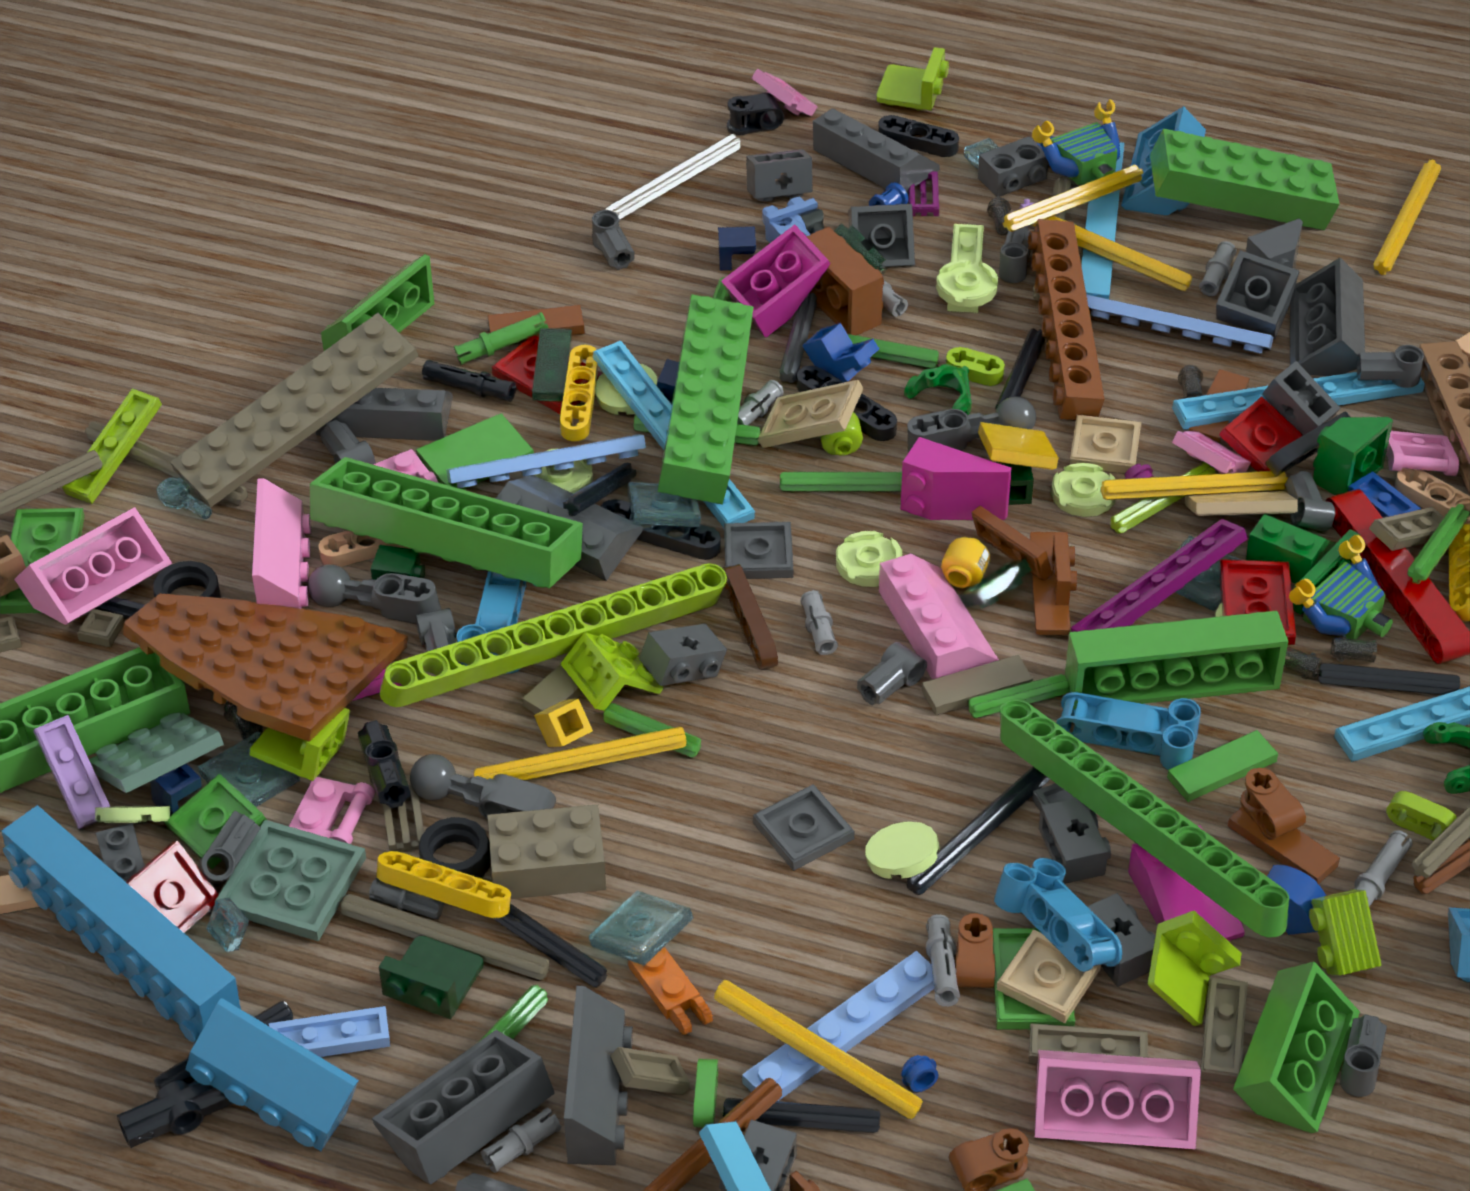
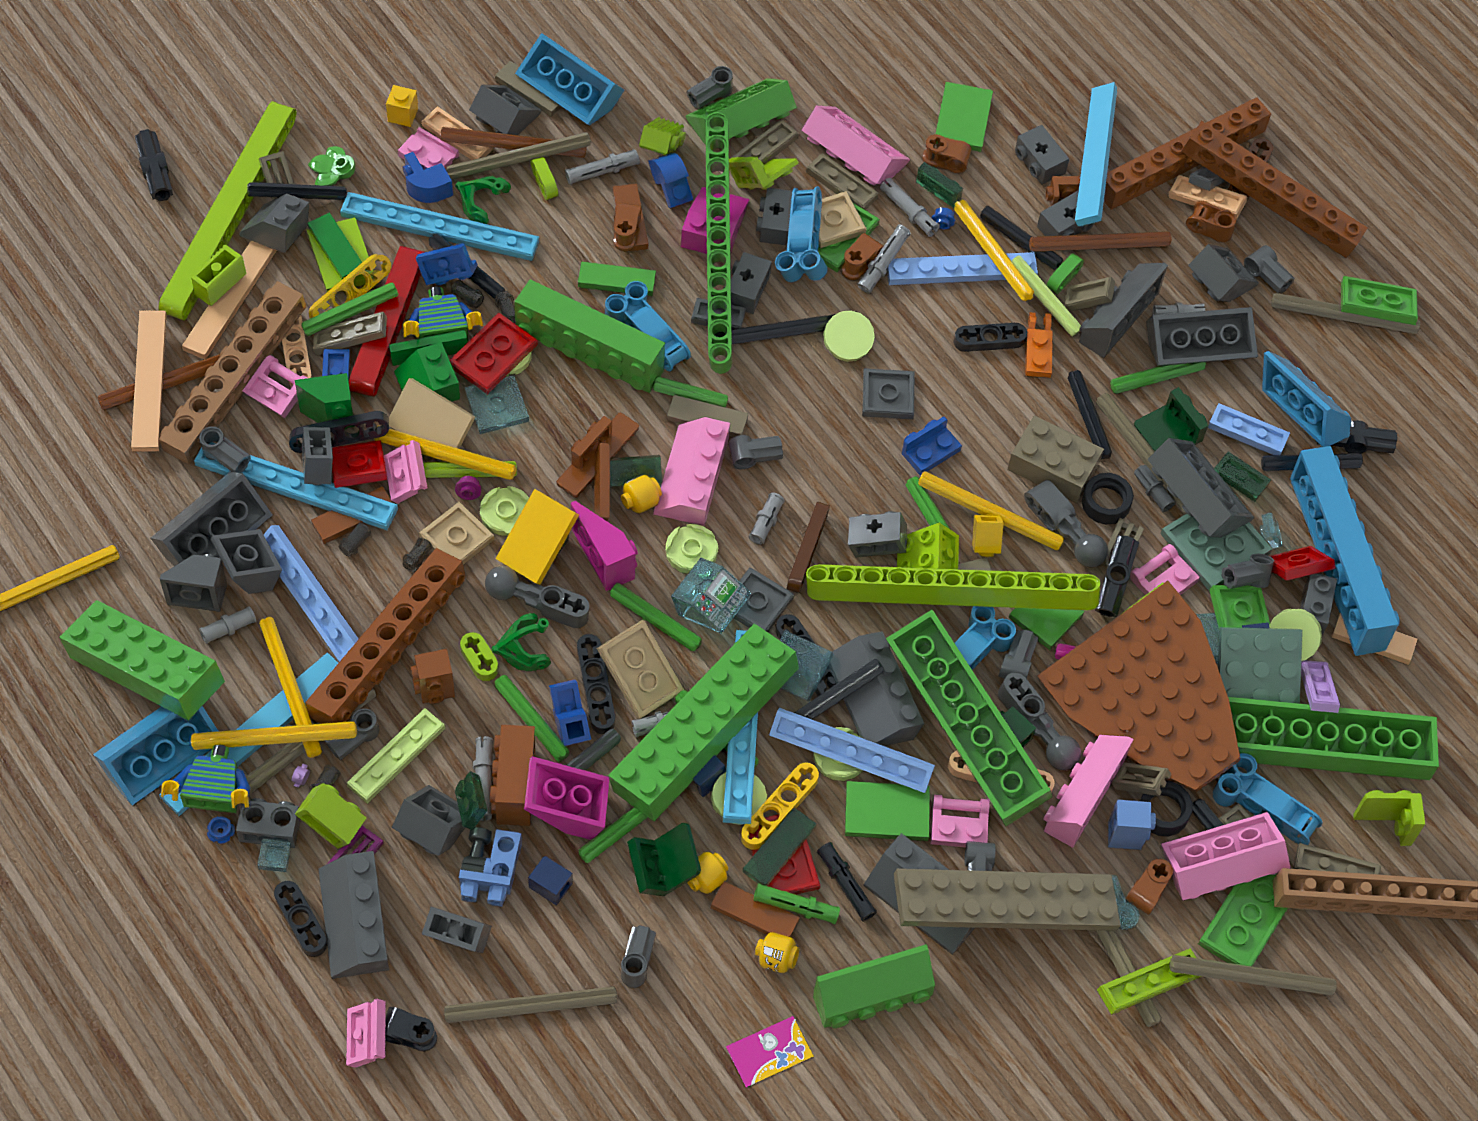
camera: 150 degrees left, 15 degrees up
(64, 649) = (1262, 796): none -> dark azure piece
(162, 516) = (1149, 888): none -> dark orange piece
(213, 536) = (1130, 824): none -> medium blue brick
(220, 585) = (1139, 783): none -> dark tan tile
(304, 972) = (1242, 476): none -> clear green plate
(342, 901) = (1199, 488): none -> dark grey slope
(443, 884) = (1135, 467): yellow beam -> none
(444, 713) = (1046, 624): none -> bright green tile
(446, 250) = (769, 1051): none -> sticker
(488, 297) = (777, 952): none -> yellow head
(604, 321) = (712, 873): none -> yellow head
(640, 927) = (1033, 381): clear light blue tile -> none
(653, 298) = (664, 862): none -> dark green bracket
(704, 794) = (930, 446): none -> blue bracket
(707, 1041) = (1046, 296): none -> yellowish green axle
(742, 946) = (982, 344): none -> black beam
(805, 509) = (709, 596): none -> clear light blue slope
(893, 195) = (394, 854): blue bush -> none
(914, 86) = (250, 975): lime bracket -> none
(962, 1109) = (939, 184): none -> clear green plate
(965, 182) = (331, 815): none -> lime brick
(967, 283) = (418, 726): yellowish green tile -> none
(983, 1062) = (916, 213): none -> light grey pin
(990, 309) = (433, 676): none -> dark orange brick
(1023, 365) = (455, 628): black axle -> none
(1119, 398) = (417, 554): none -> clear smoke pin
(1165, 578) = (540, 396): magenta plate -> none
(1312, 510) = (387, 394): dark grey piece -> none
(1398, 642) = (446, 264): none -> blue bracket

